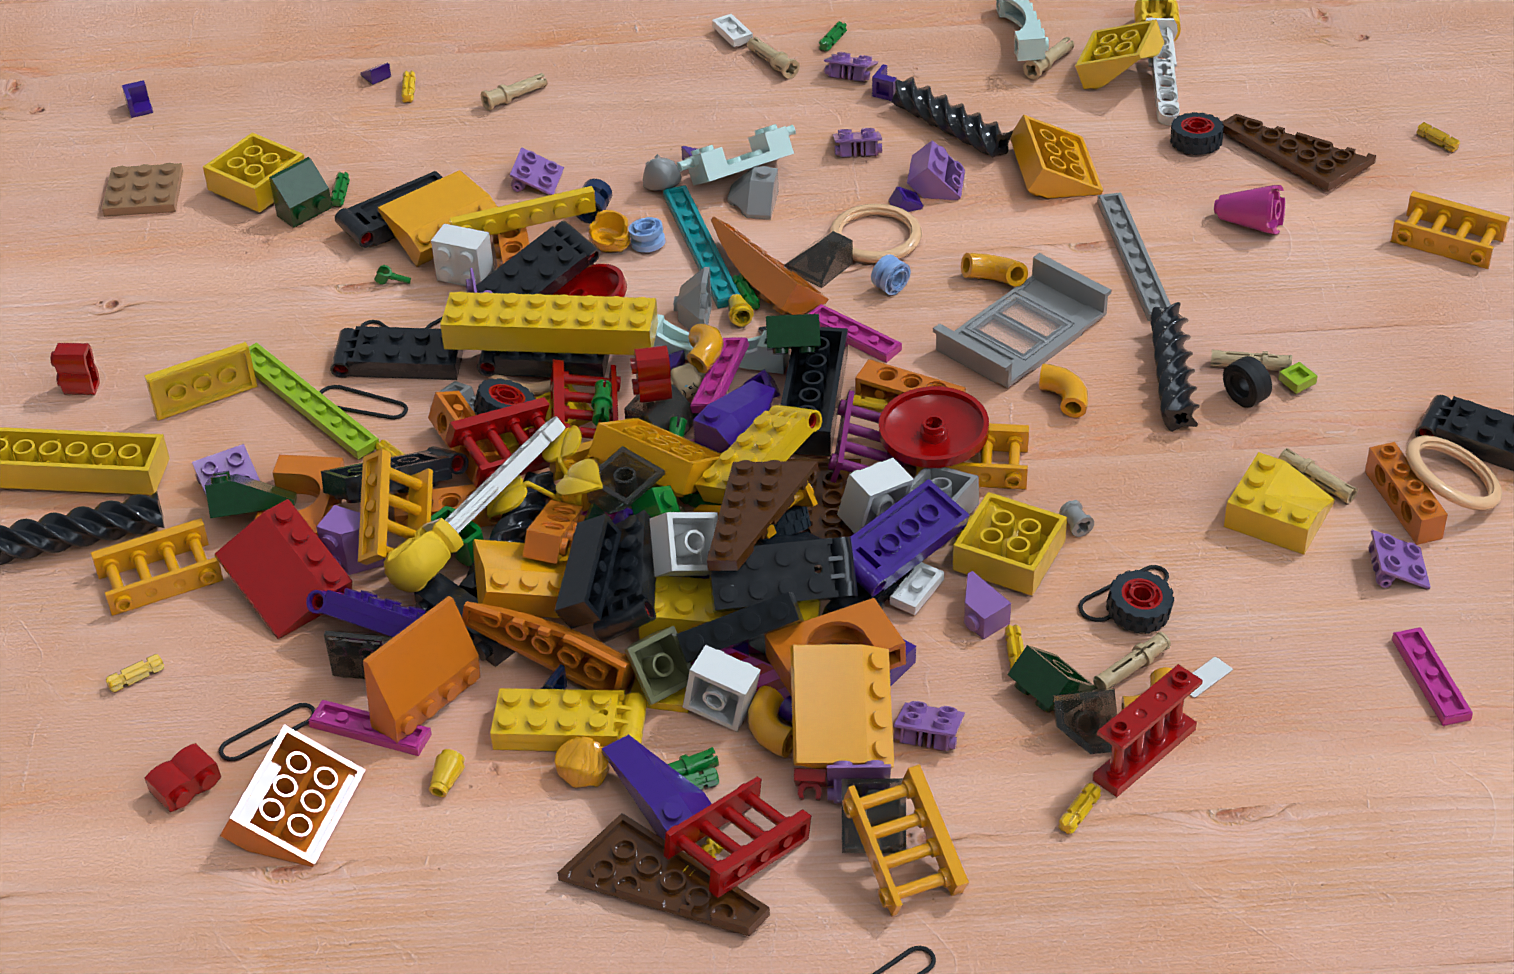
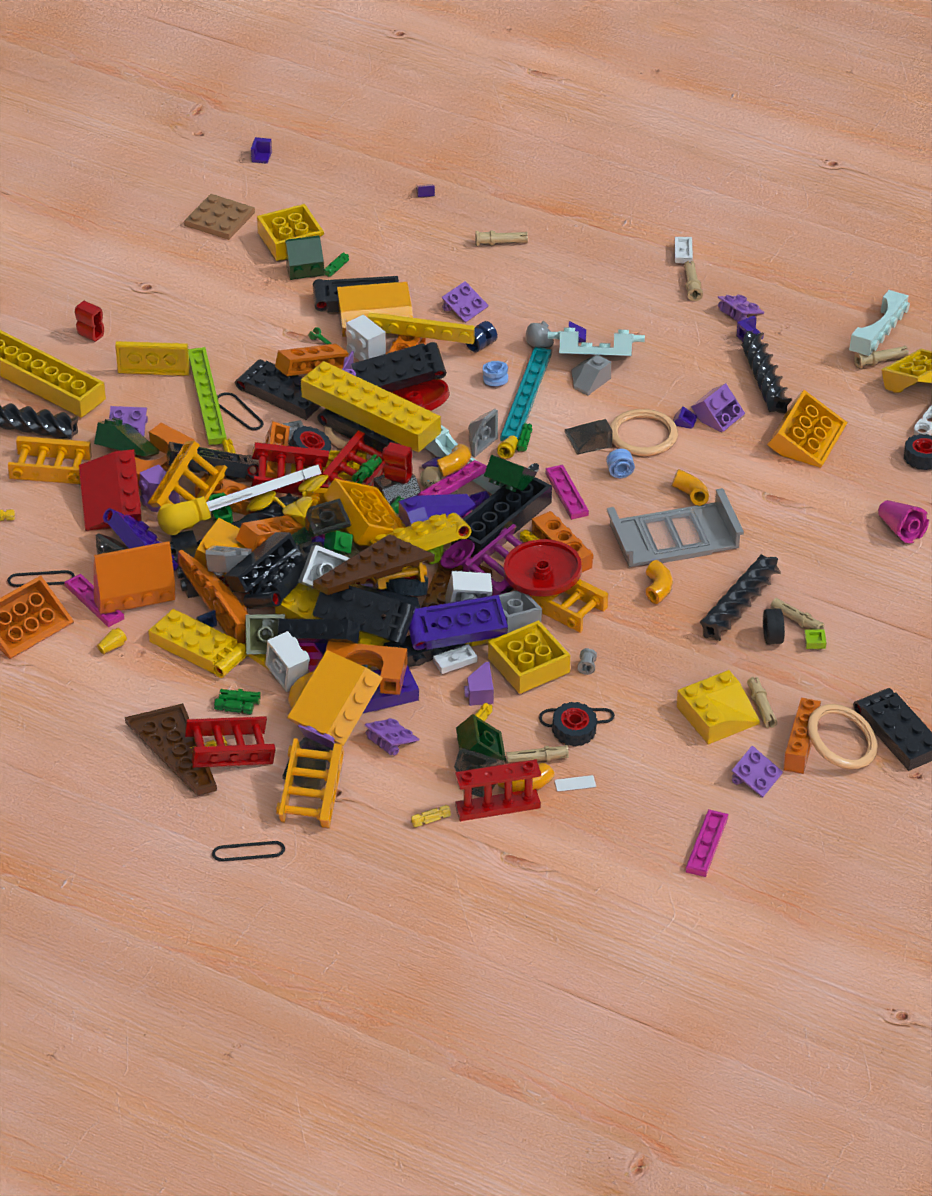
camera: 30 degrees right, 0 degrees up
(408, 86) = (437, 207): yellow axle -> none
(413, 303) = (305, 359): none -> orange brick
(539, 586) = (223, 558): none -> light grey slope
(581, 762) = (185, 668): light orange hair -> none
(610, 231) = (471, 361): light orange hair -> none
(656, 788) = (210, 694): dark purple wedge -> none
(766, 274) = (545, 433): orange wedge -> none
(810, 778) = (295, 732): red tile -> none
(817, 447) = (457, 553): none -> magenta dish
(833, 36) = (749, 281): green axle -> none
(867, 135) = (690, 365): medium lavender hinge -> none
(1133, 252) = (798, 515): light grey tile -> none

